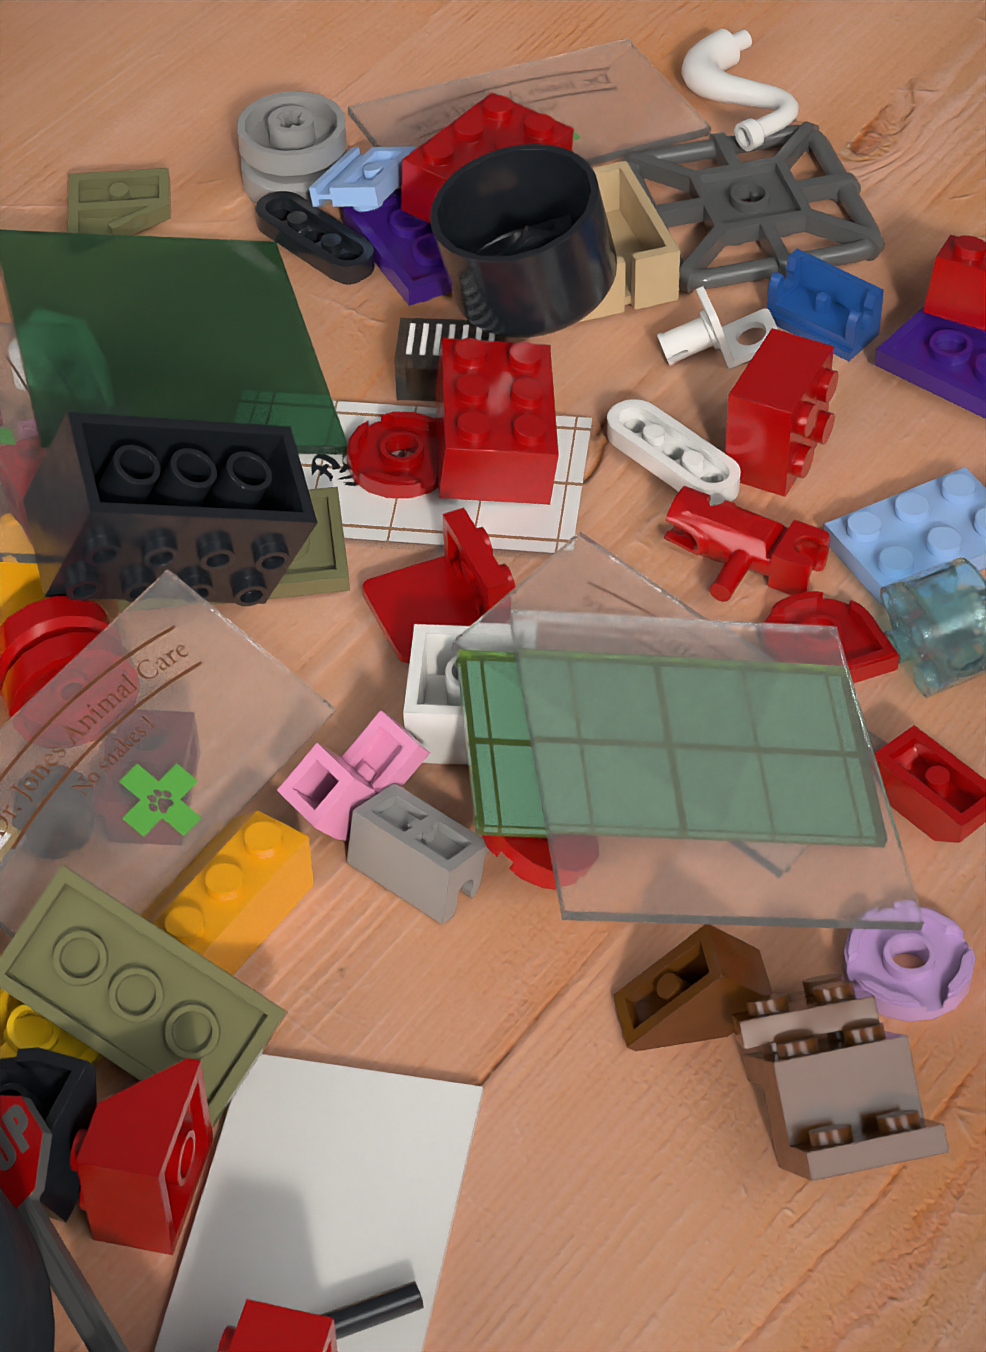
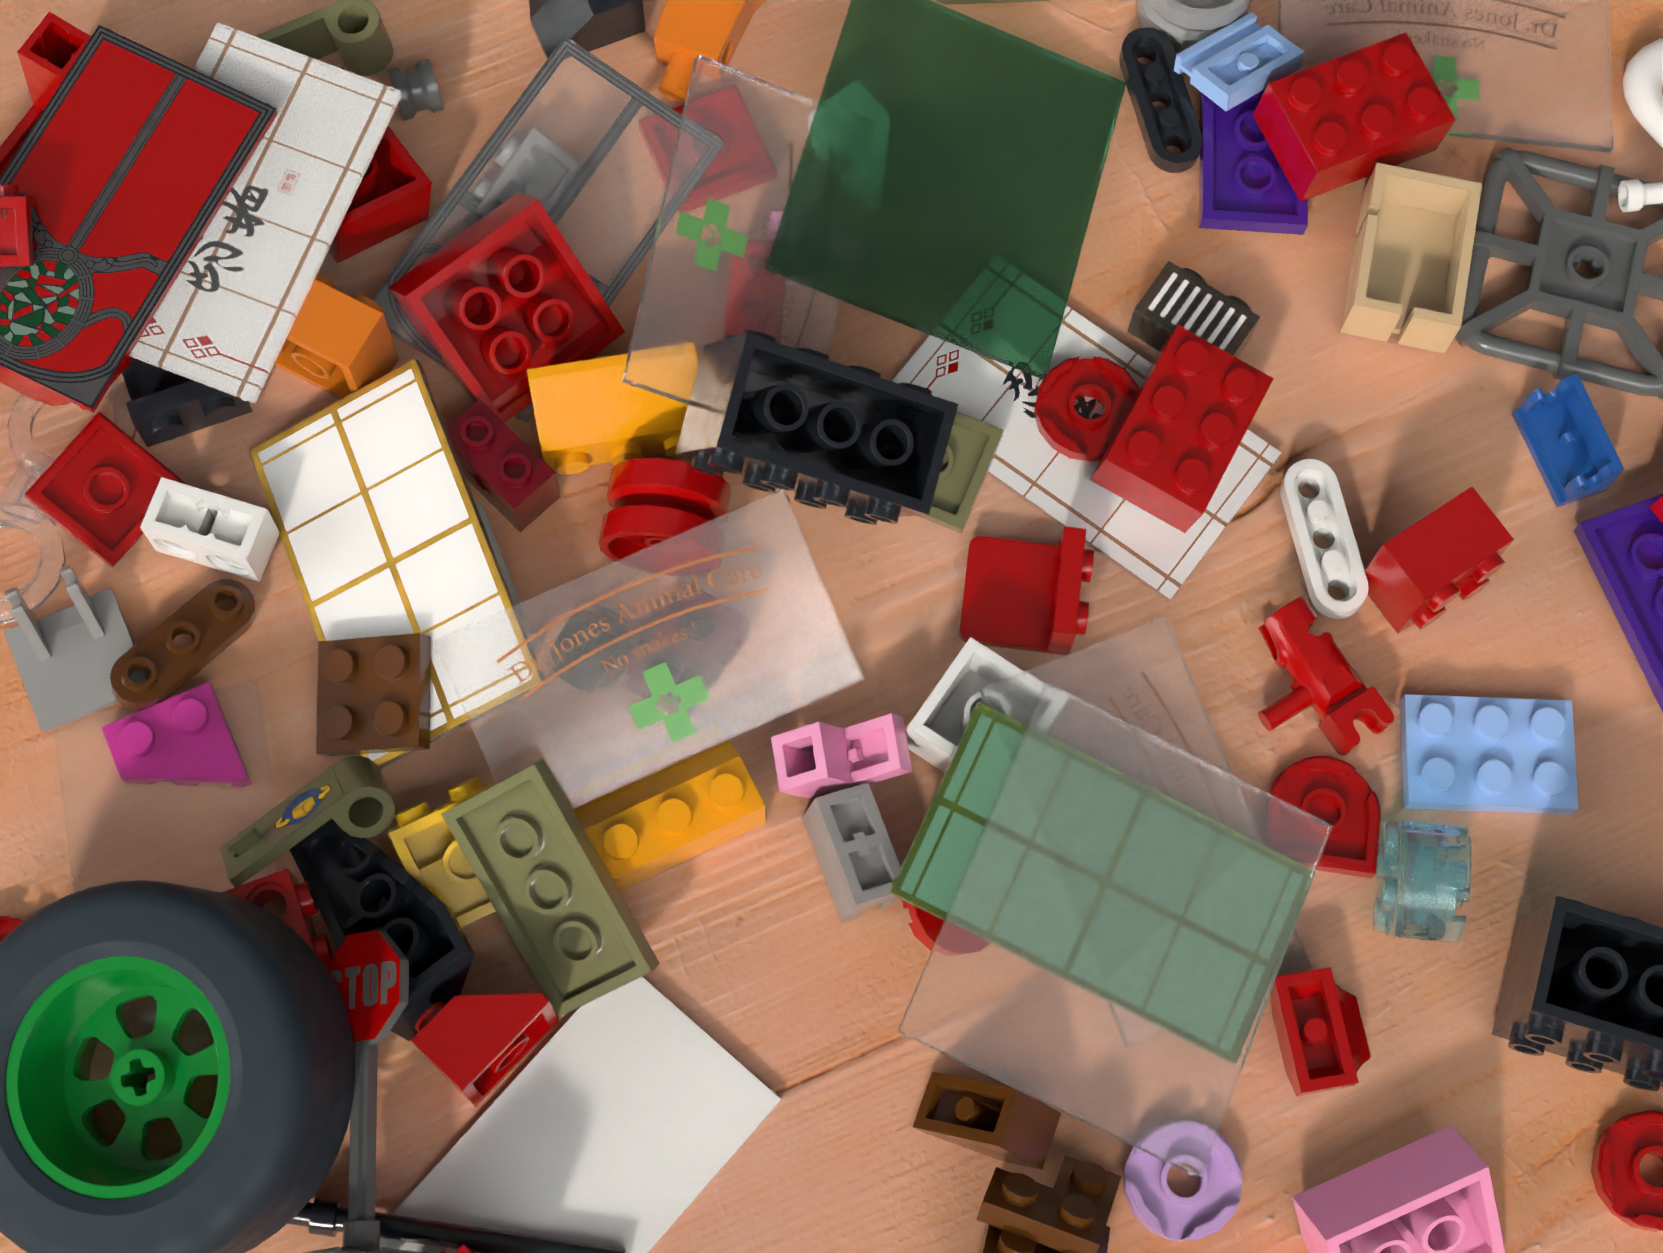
camera: 25 degrees right, 25 degrees up
(525, 240) = (1308, 215): black piece -> none
(707, 332) = (1452, 424): white bracket -> none

